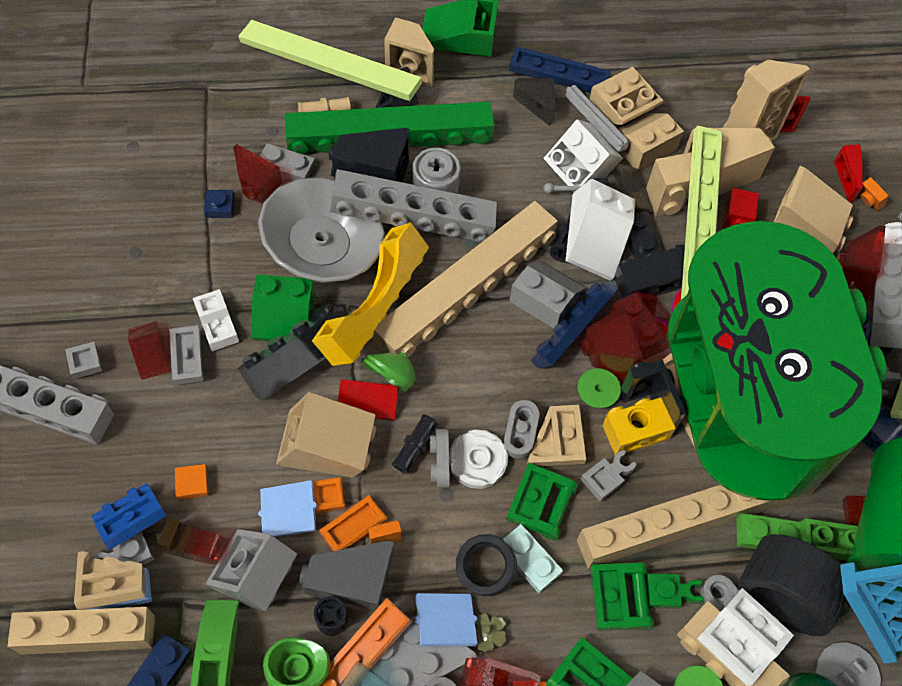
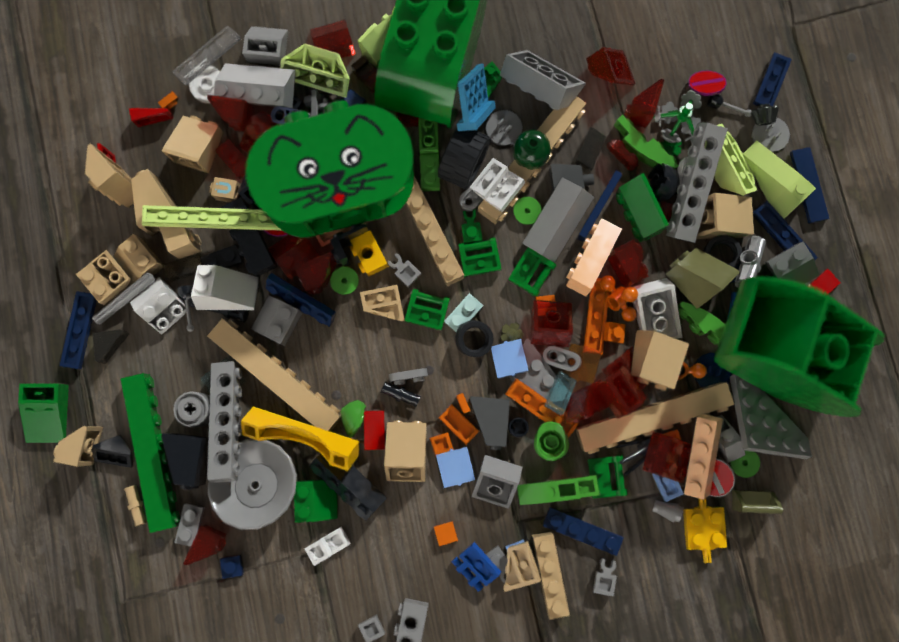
camera: 90 degrees left, 20 degrees up
(148, 350) = (356, 587): clear red slope -> none
(186, 355) = (357, 559): light grey plate -> none
(190, 542) = (486, 522): leg -> none
(331, 60) = (90, 511): yellowish green tile -> none
(478, 459) = (403, 352): white tile -> none
(521, 430) = (381, 326): light grey plate -> none
(740, 207) = (194, 192): red brick -> none

